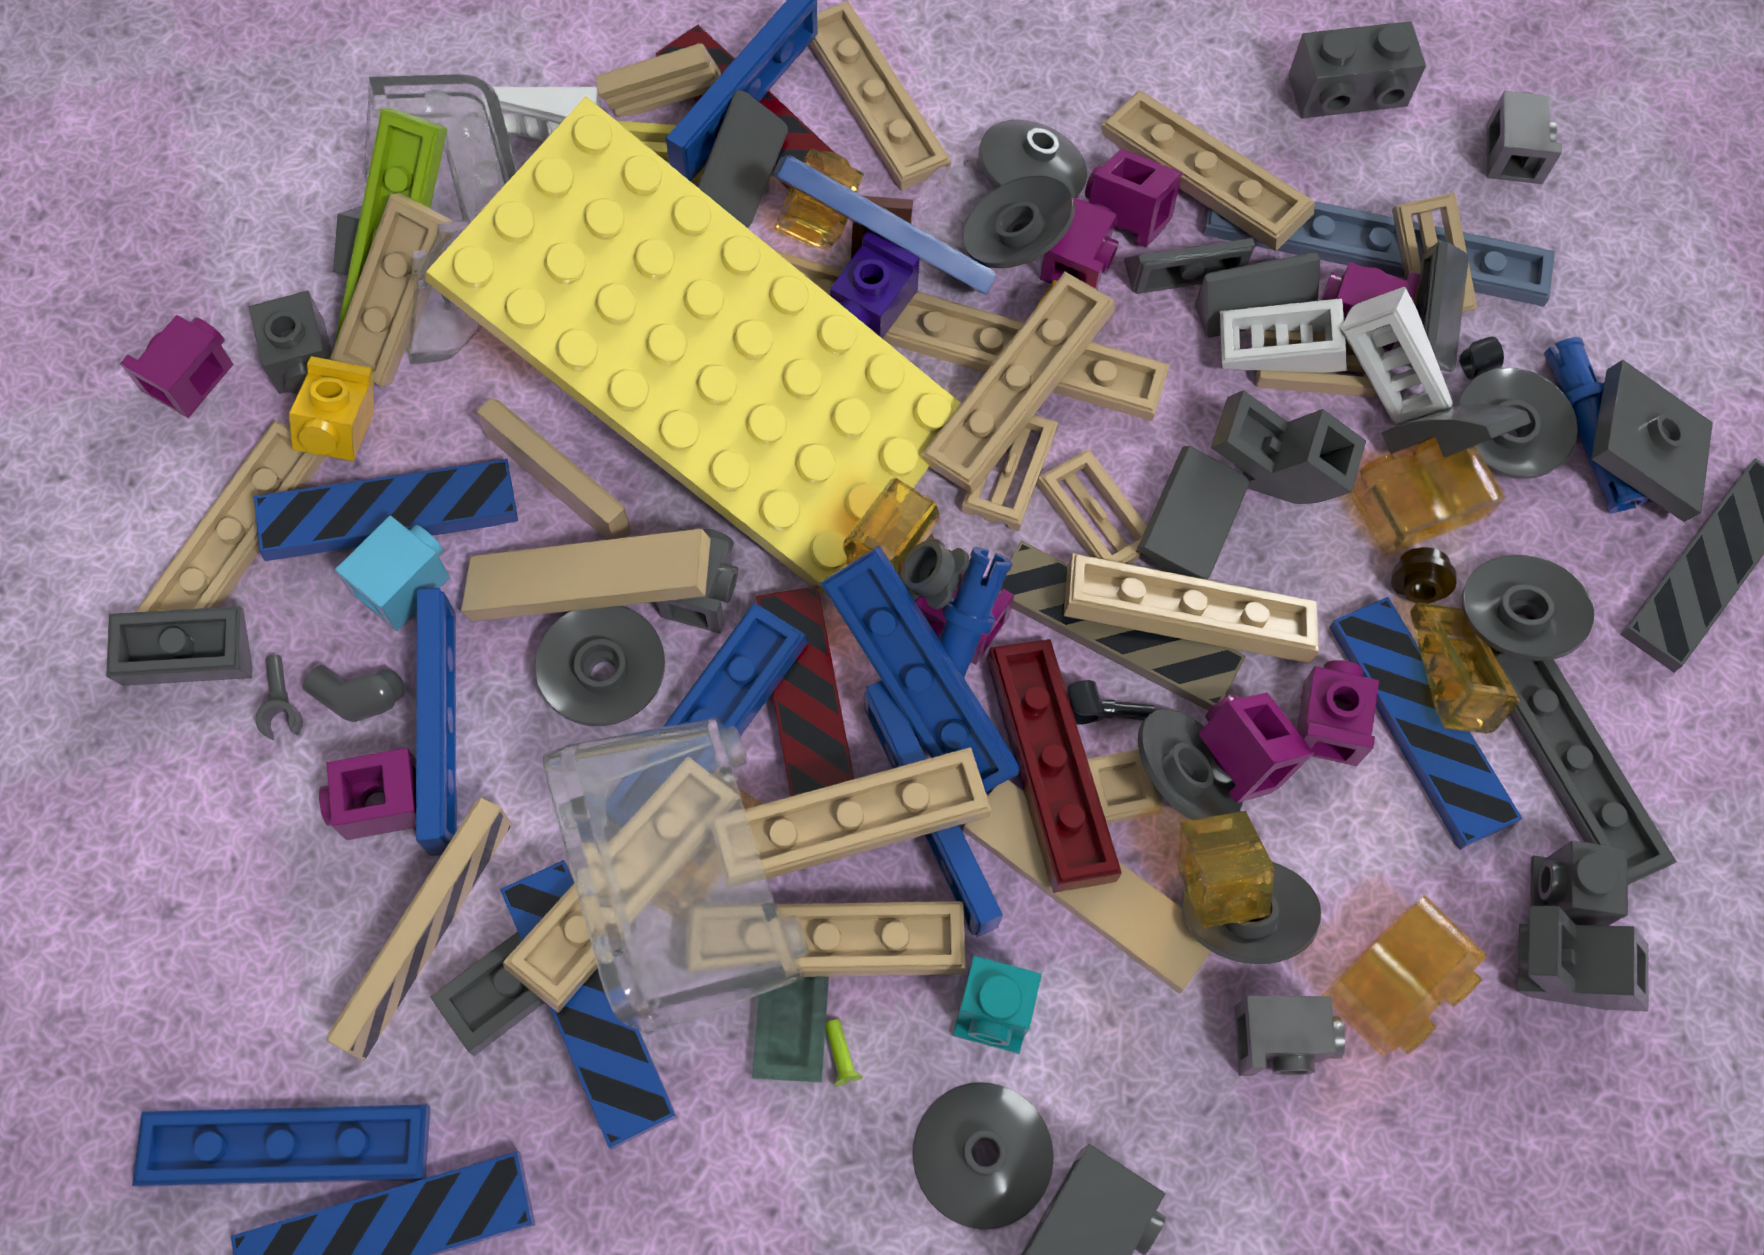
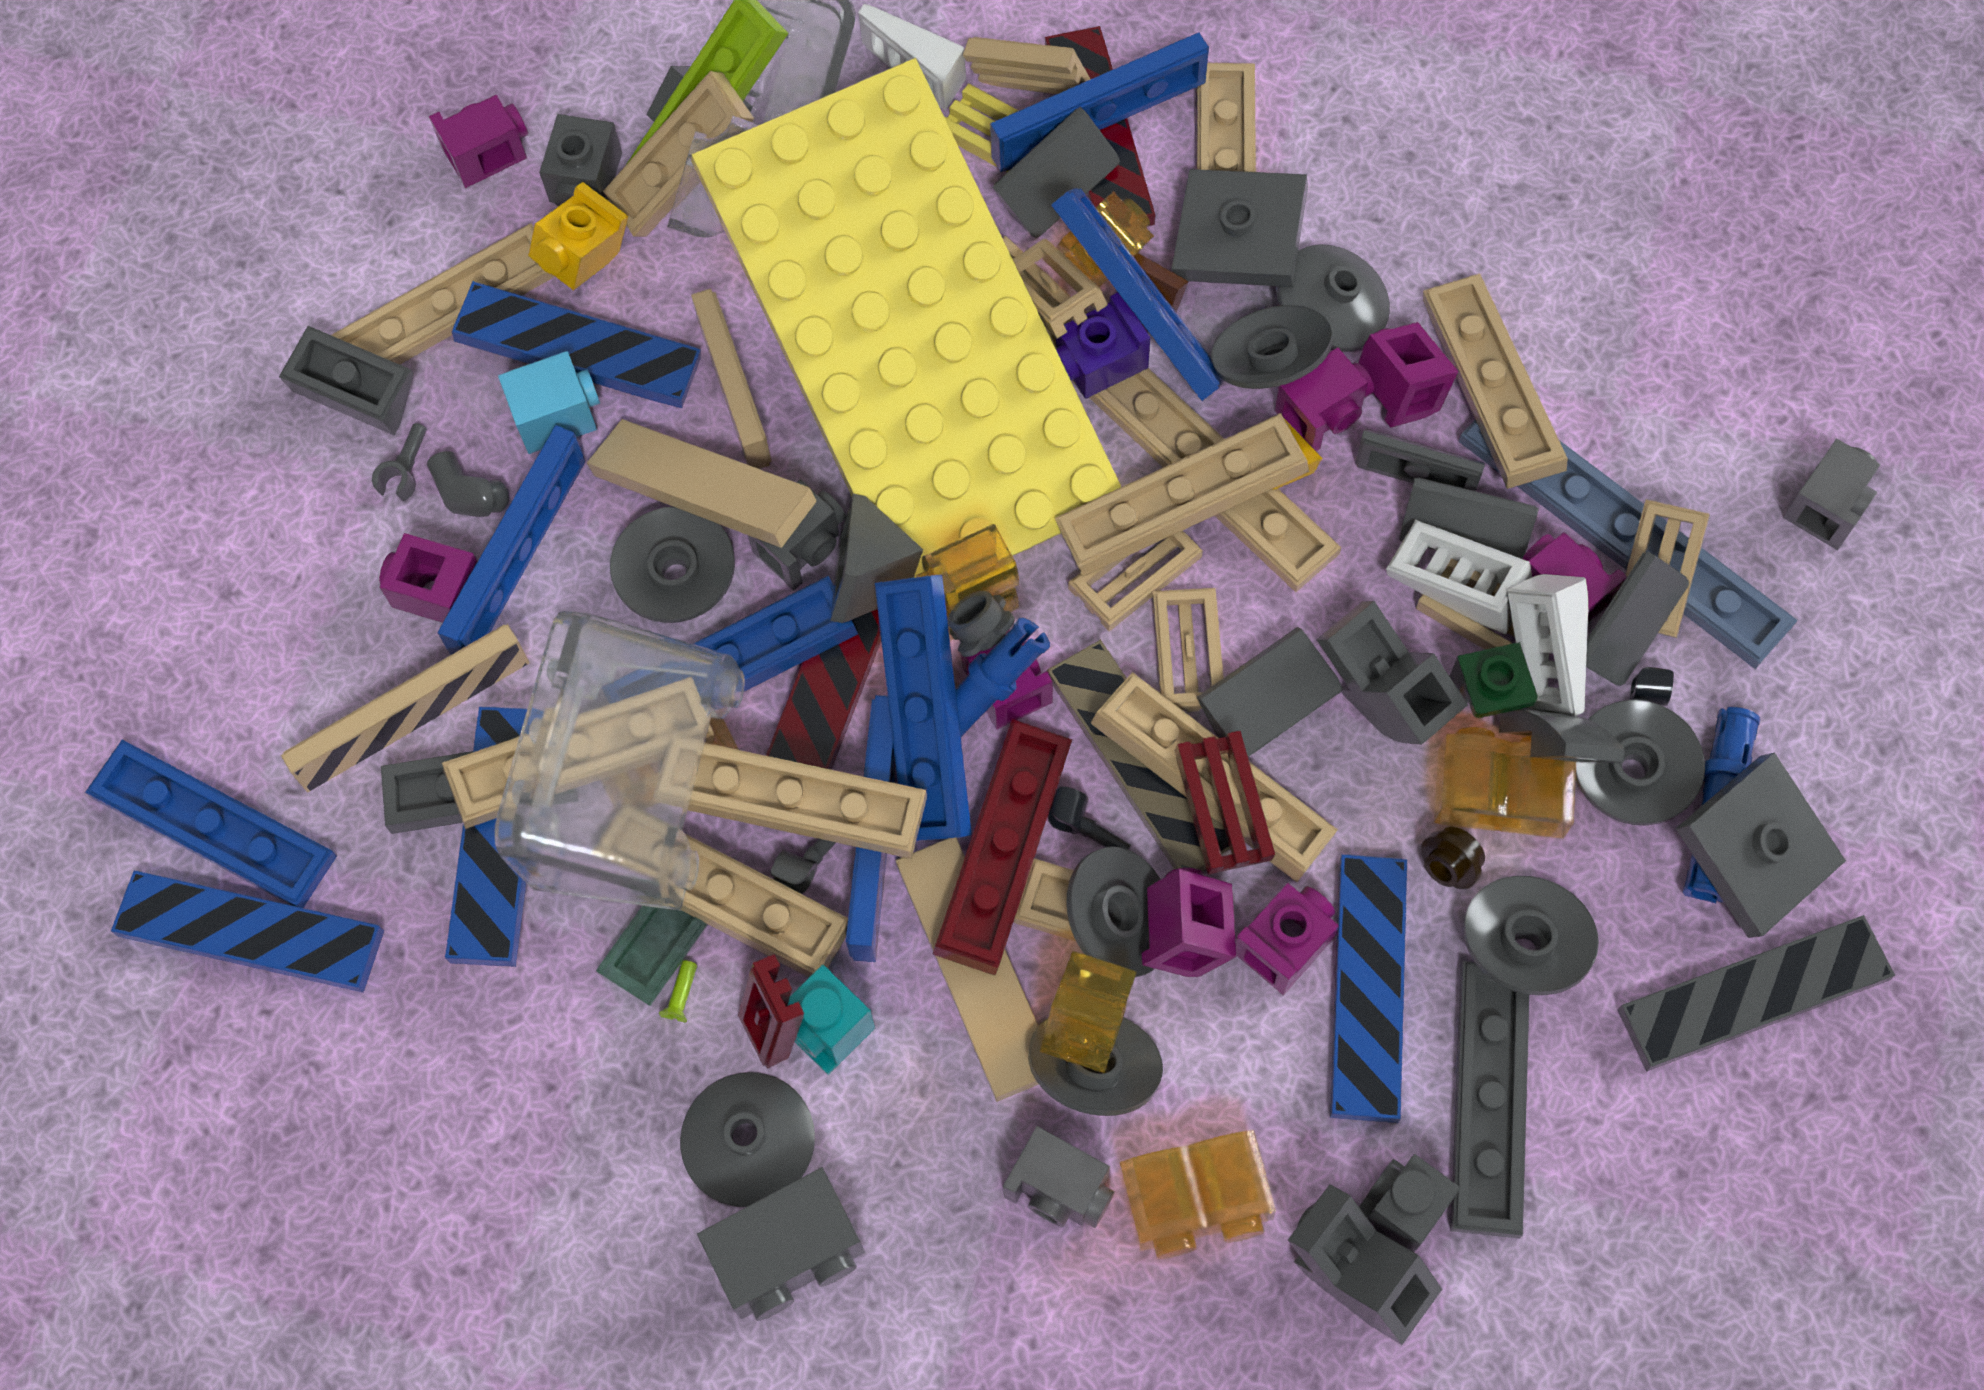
camera: 35 degrees right, 0 degrees up
(784, 568) = (869, 553): none -> dark grey slope
(818, 267) = (1067, 307): none -> tan tile
(881, 883) = (799, 871): none -> dark grey hand
(927, 136) = (1240, 227): none -> dark grey plate
(958, 1013) = (766, 1004): none -> dark red tile
(1232, 617) = (1211, 750): none -> dark red tile
(1356, 69) = (1706, 350): dark grey brick -> none
(1376, 409) = (1494, 680): none -> dark green bracket
(1461, 672) = (1410, 988): clear yellow slope -> none

